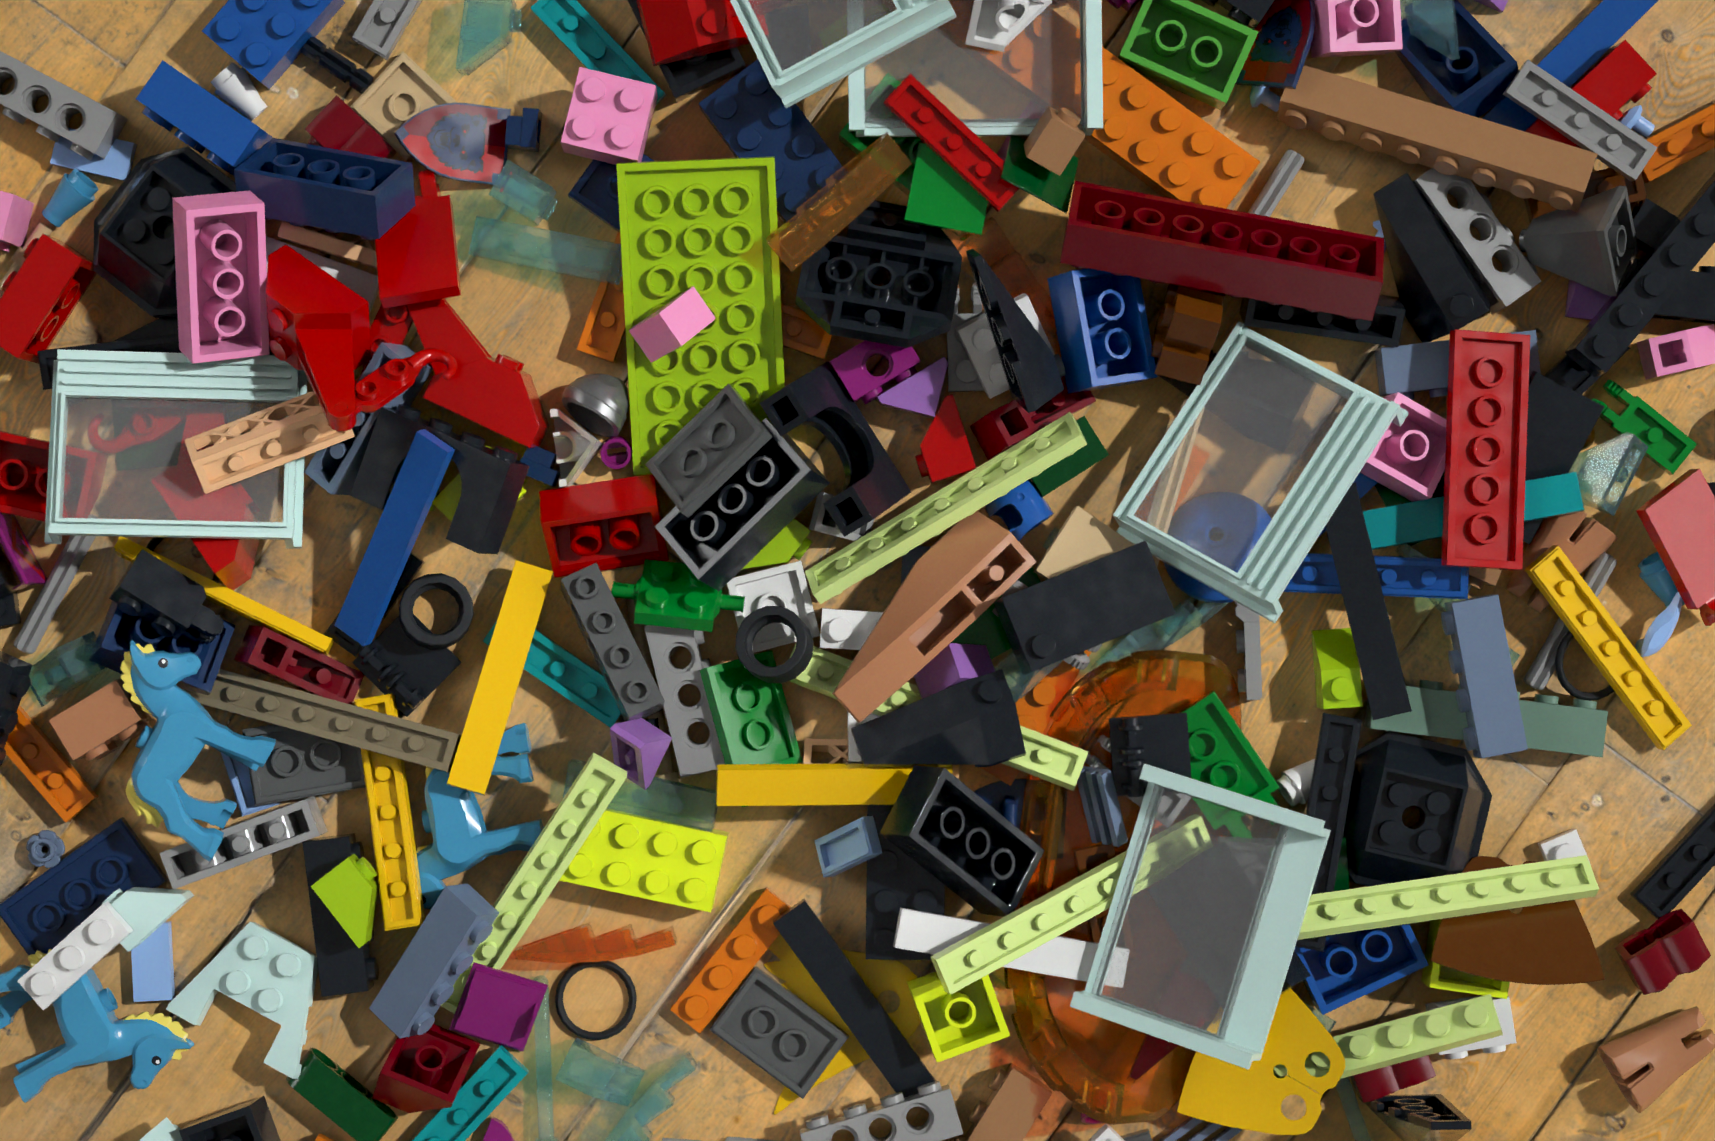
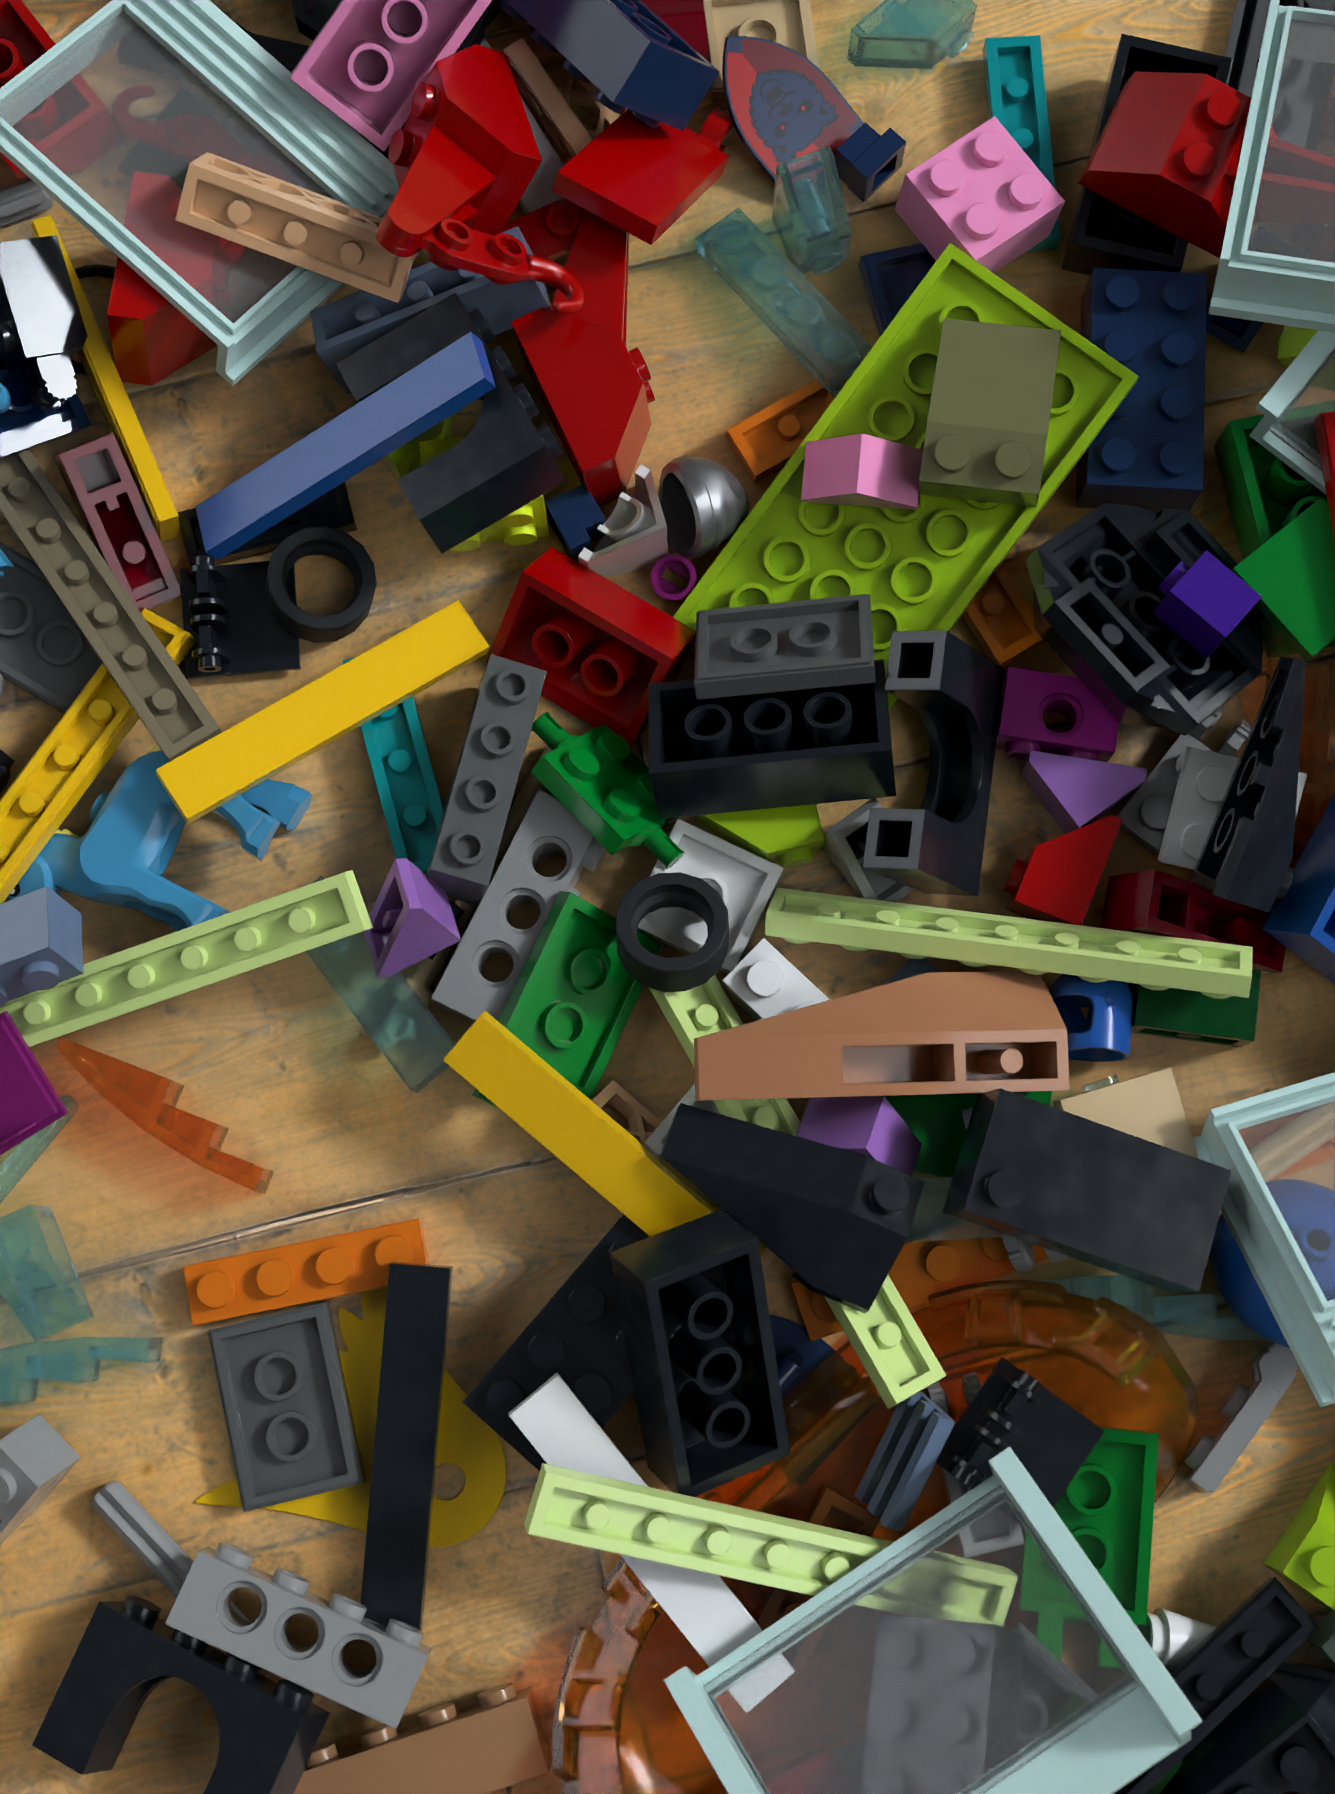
camera: 45 degrees right, 10 degrees down
(596, 1035) = (57, 1168): black tyre -> none
(650, 860) = (312, 1065): neon yellow brick -> none
(712, 240) = (989, 412): none -> olive slope
(839, 202) = (1172, 487): clear orange slope -> none
(848, 846) = (557, 1247): light blue tile -> none
(904, 253) = (1204, 602): none -> dark purple brick
(957, 1020) = (512, 1577): neon yellow brick -> none

